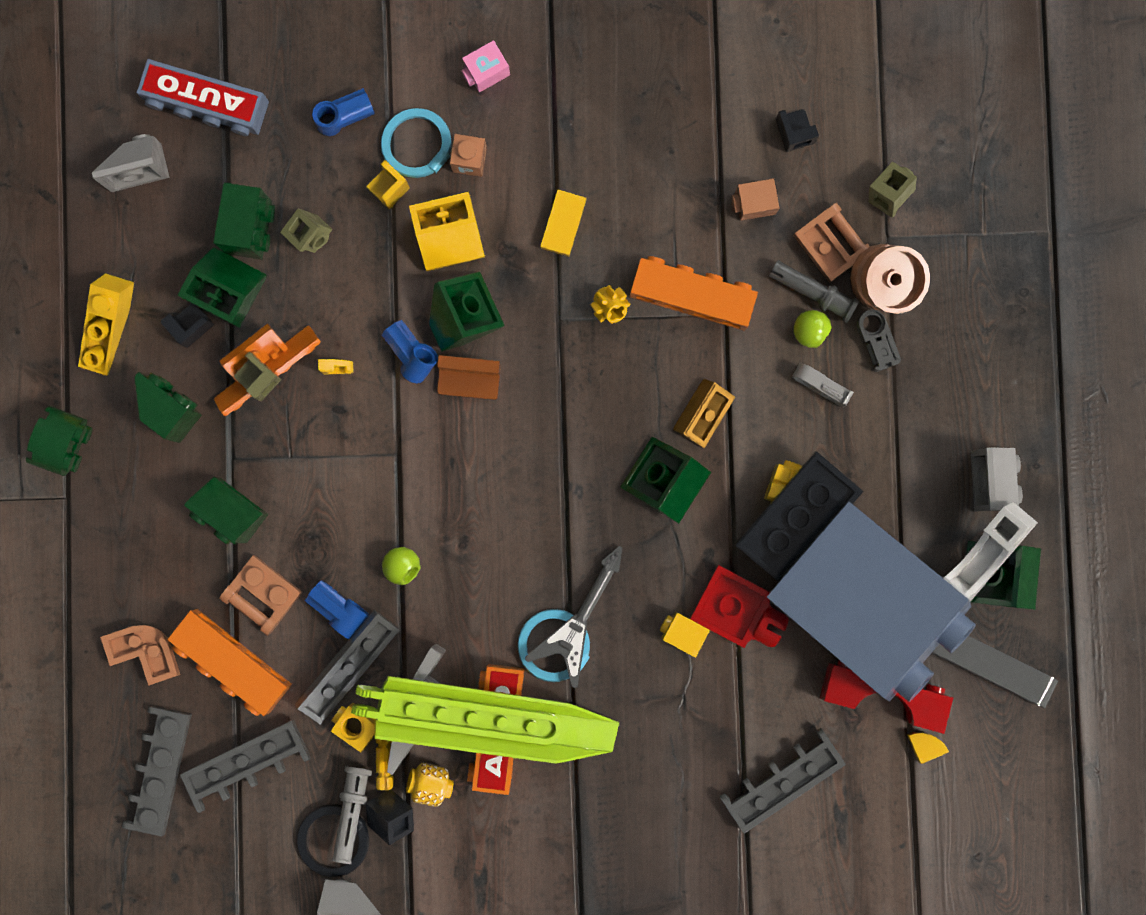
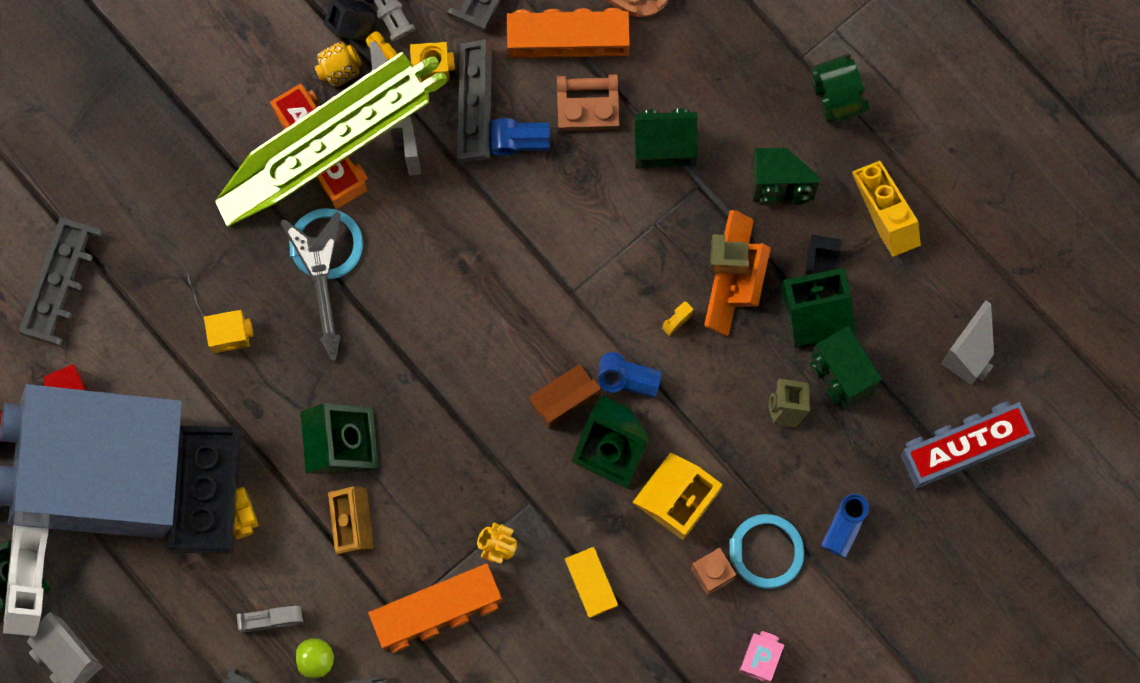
camera: 140 degrees right, 10 degrees down
(388, 185) = (758, 495): yellow panel -> none
(401, 565) = (496, 207): lime piece -> none
(738, 610) = (201, 380): red plate -> none

